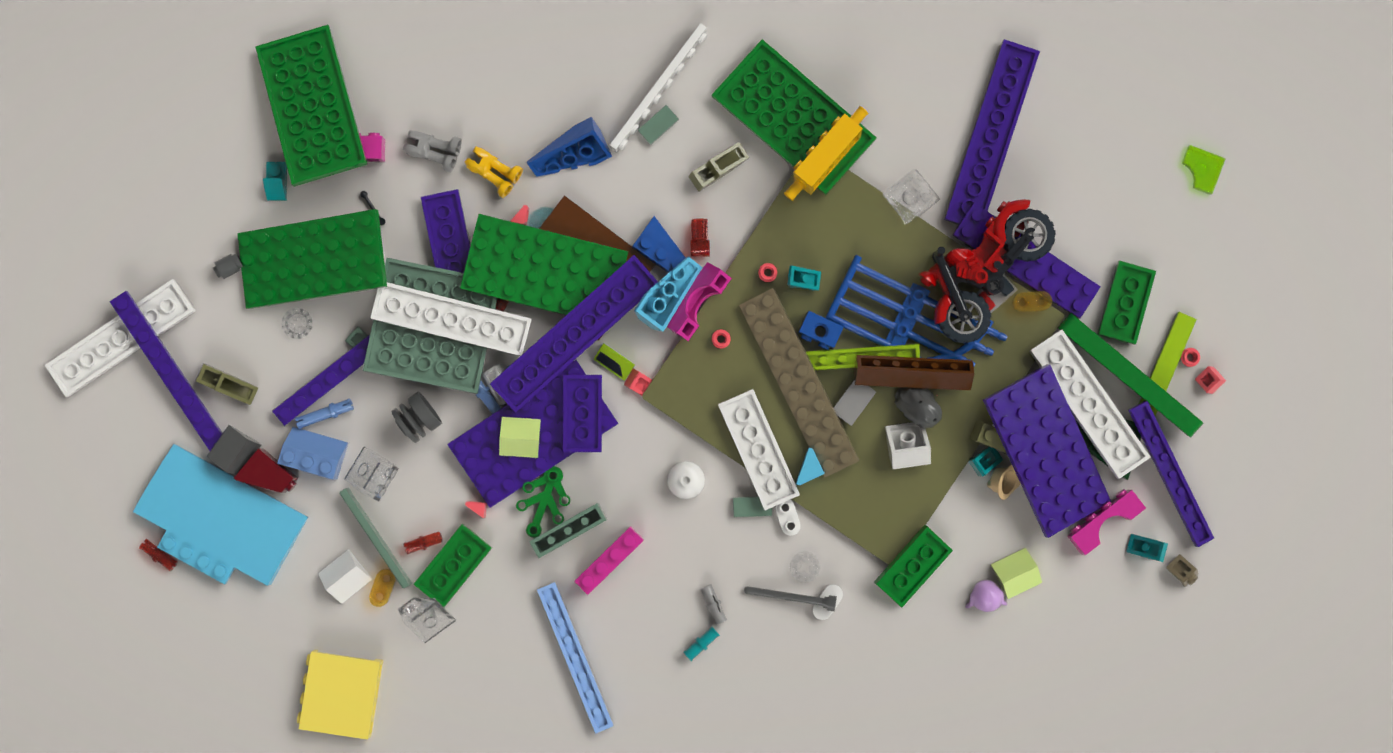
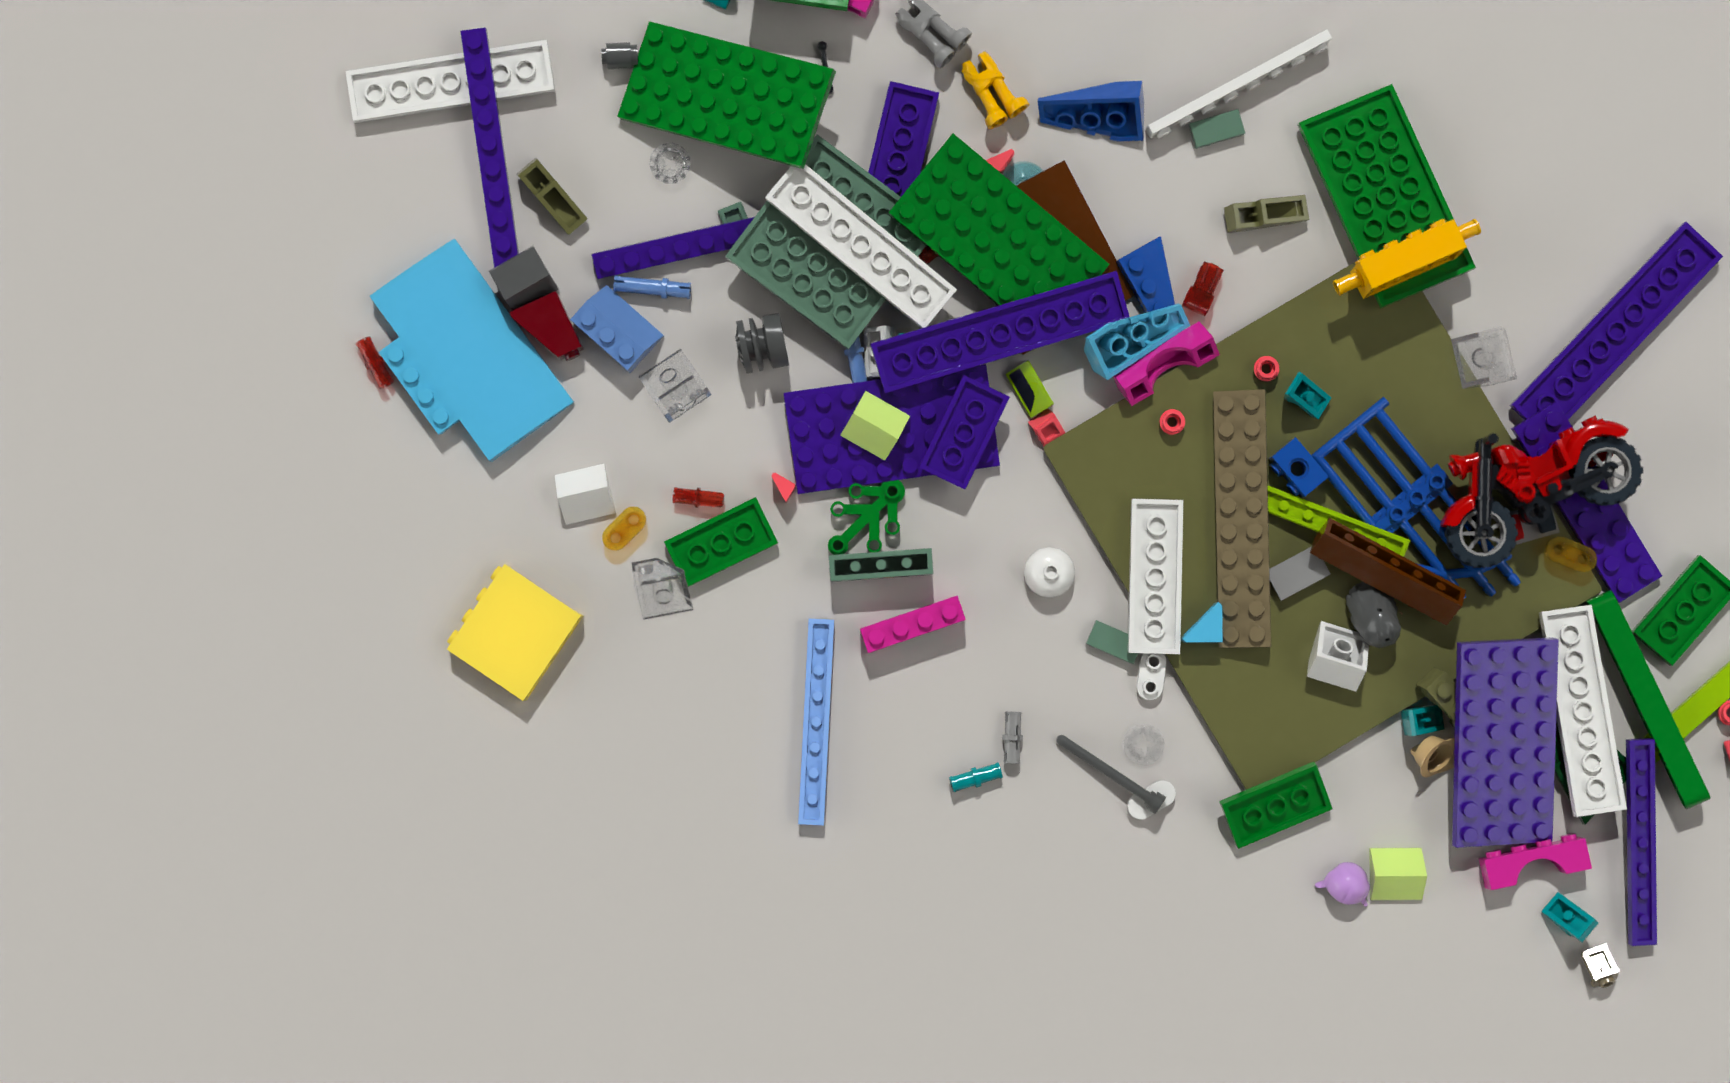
camera: 25 degrees right, 0 degrees up
(375, 537) = (644, 465): sand green tile -> none

